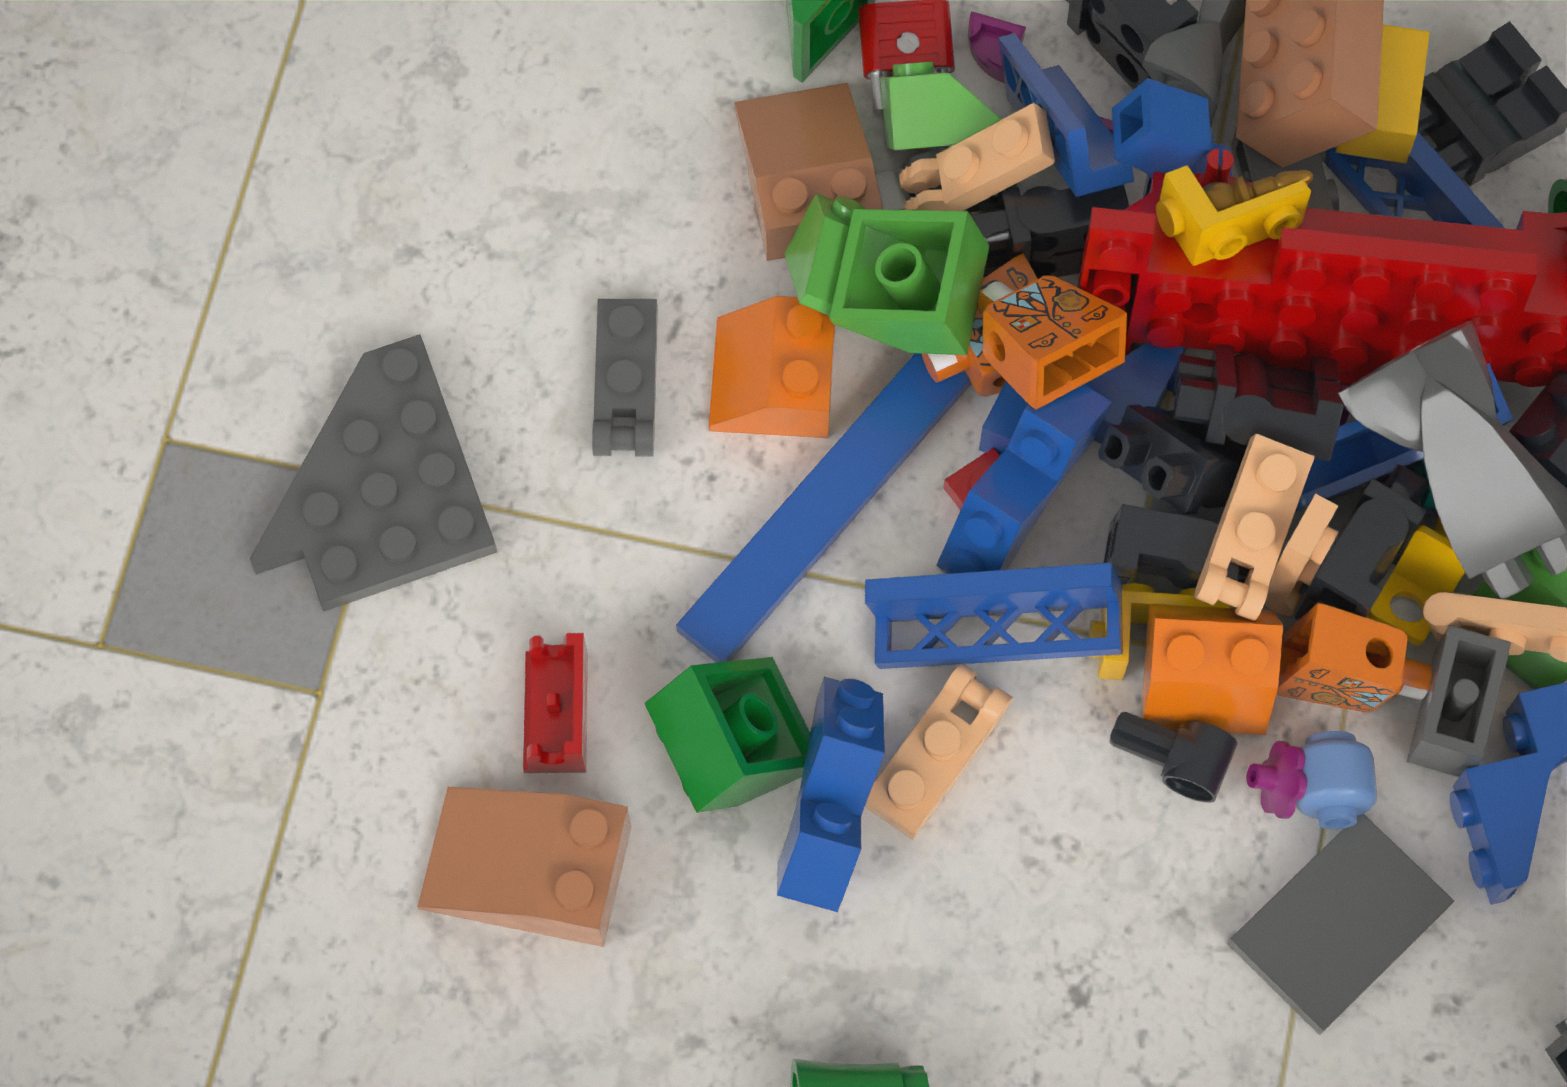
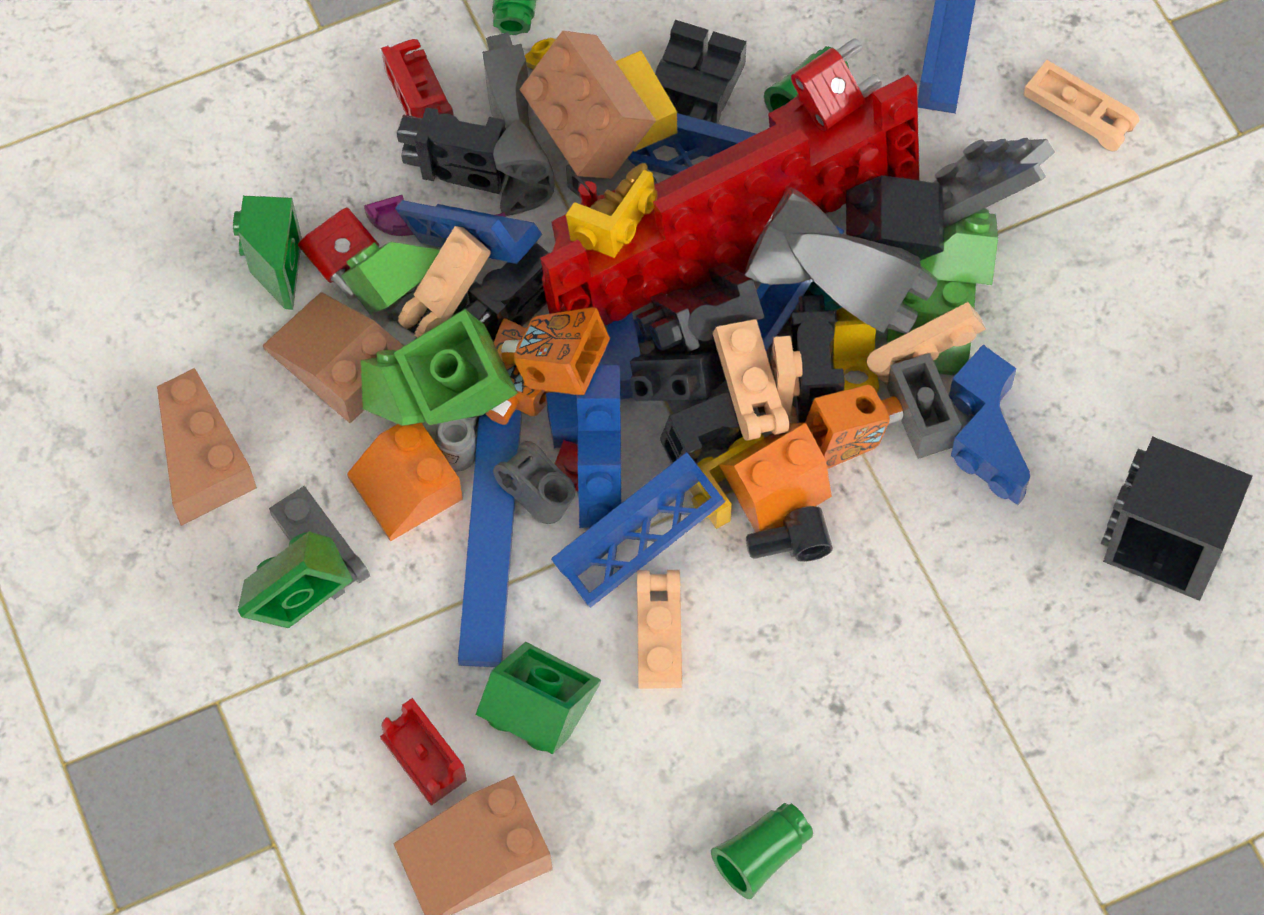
camera: 35 degrees left, 5 degrees down
(380, 487) = (220, 701): dark grey wing -> none
(553, 403) = (294, 581): none -> green slope
(568, 177) = (200, 450): none -> nougat wedge
(834, 788) = (617, 675): blue arch -> none
(865, 368) = (458, 442): none -> light grey piece
(920, 464) = (533, 480): none -> dark grey piece
(1163, 130) = (540, 196): blue arch -> none
(1280, 779) = (860, 512): magenta plant -> none
(1338, 779) = (888, 492): medium blue head -> none
(1340, 923) = (947, 569): dark grey tile -> none

